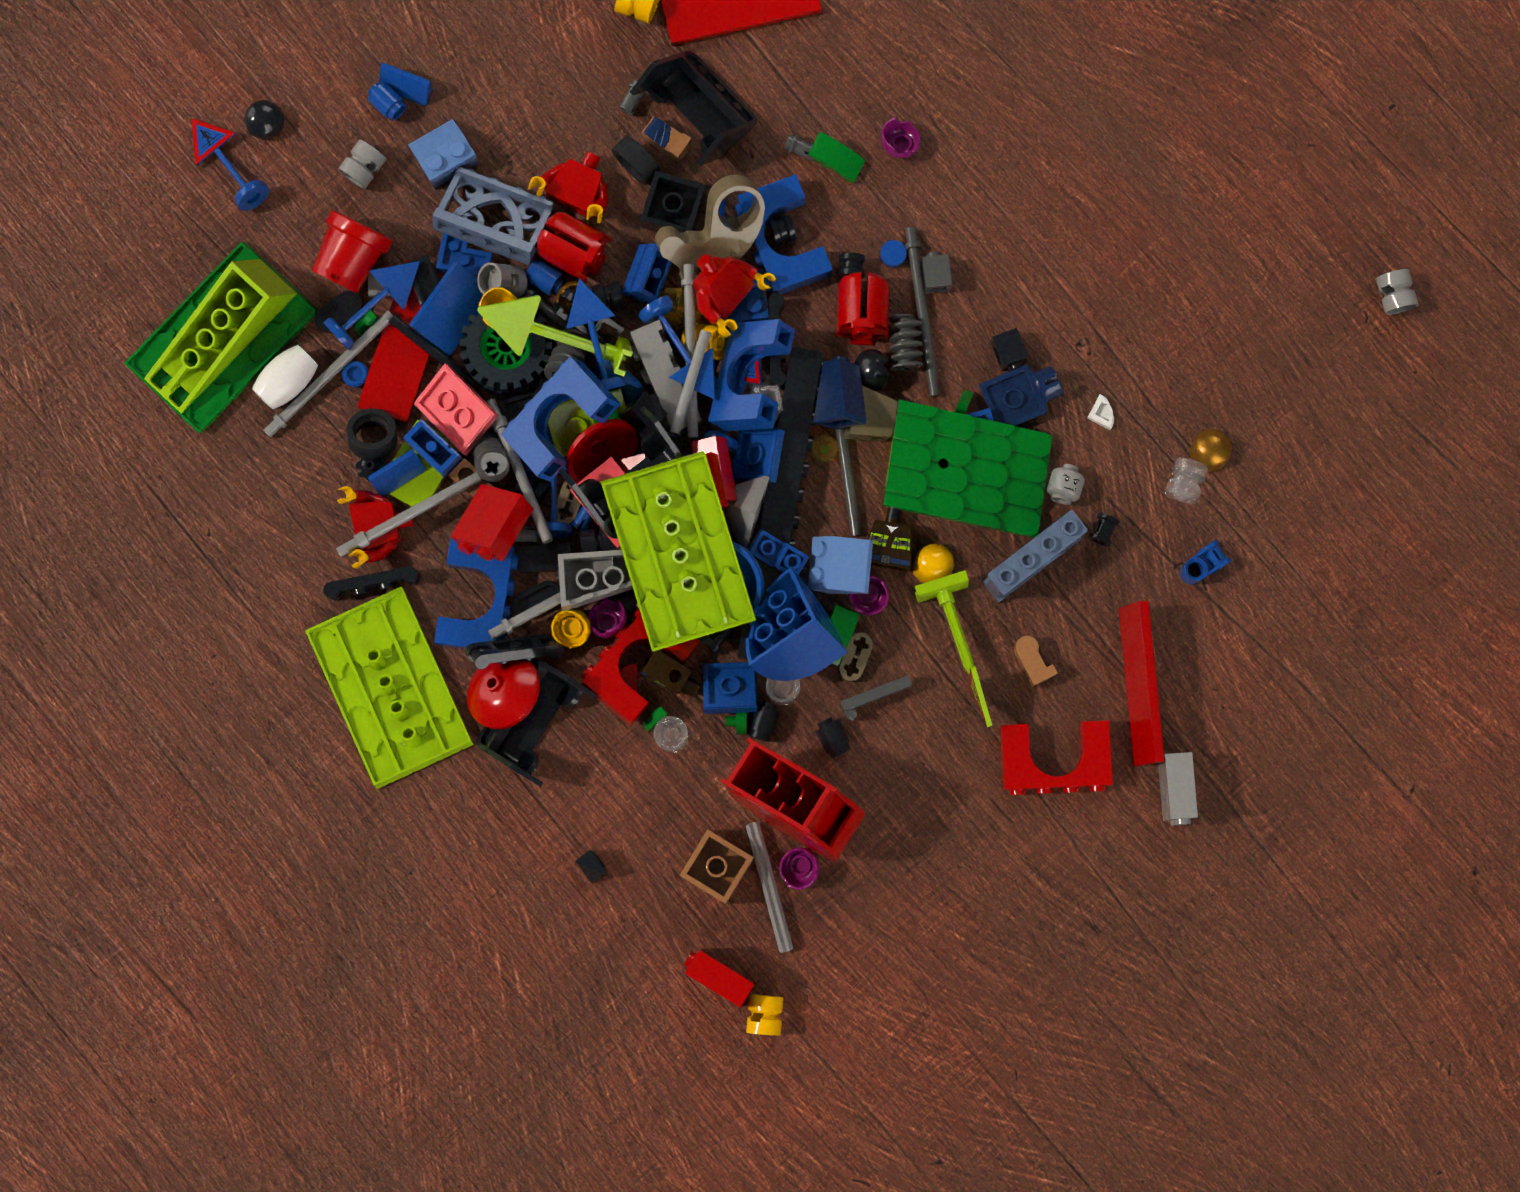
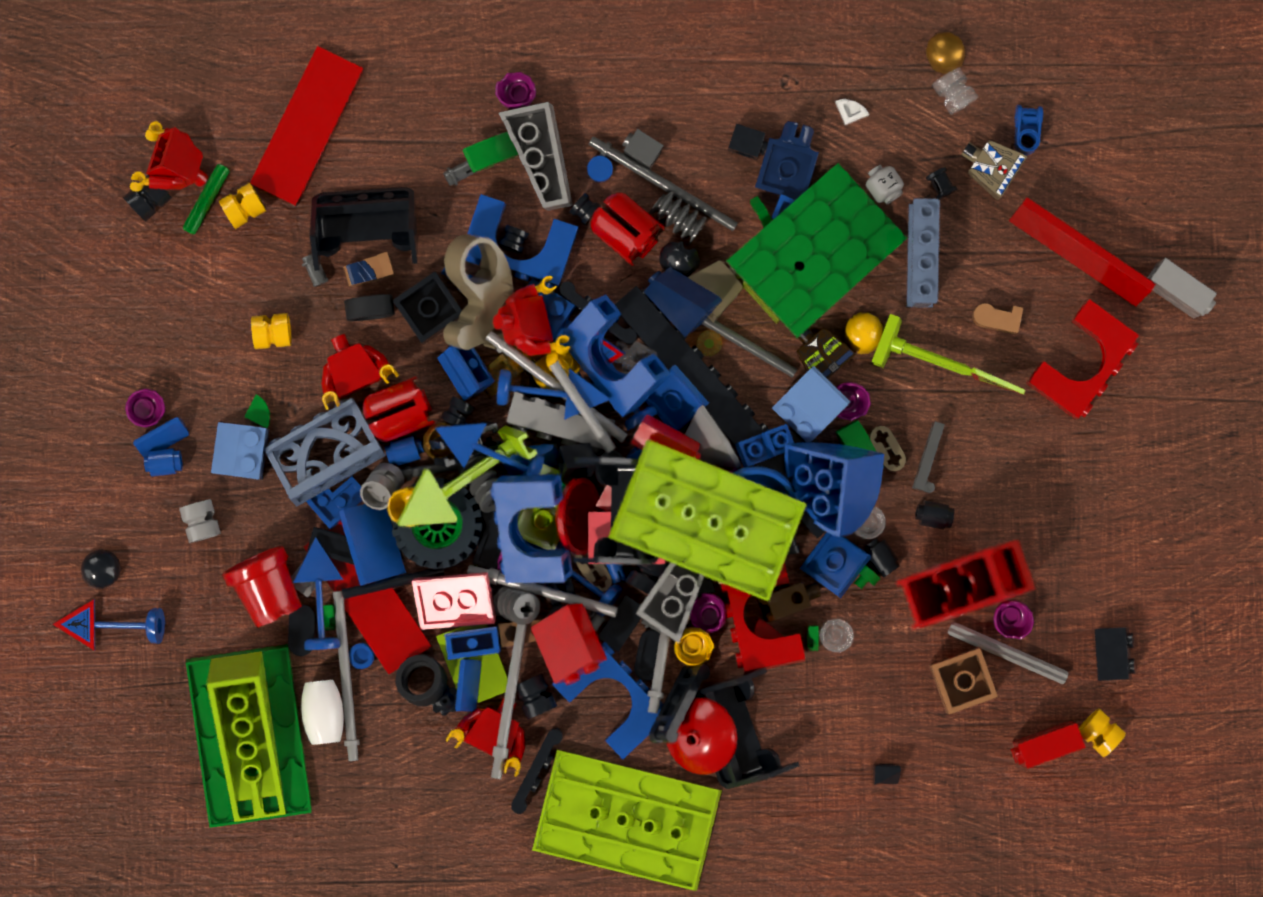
camera: 55 degrees left, 5 degrees up
(418, 52) = (145, 407): none -> magenta hair
(430, 533) = (535, 696): none -> black wheel
(485, 143) = (259, 412): none -> green tile
(560, 104) = (271, 331): none -> yellow wheel
(837, 973) = (1114, 654): none -> black brick
(868, 194) = (540, 151): none -> light grey wedge
(1152, 560) = (993, 166): none -> torso

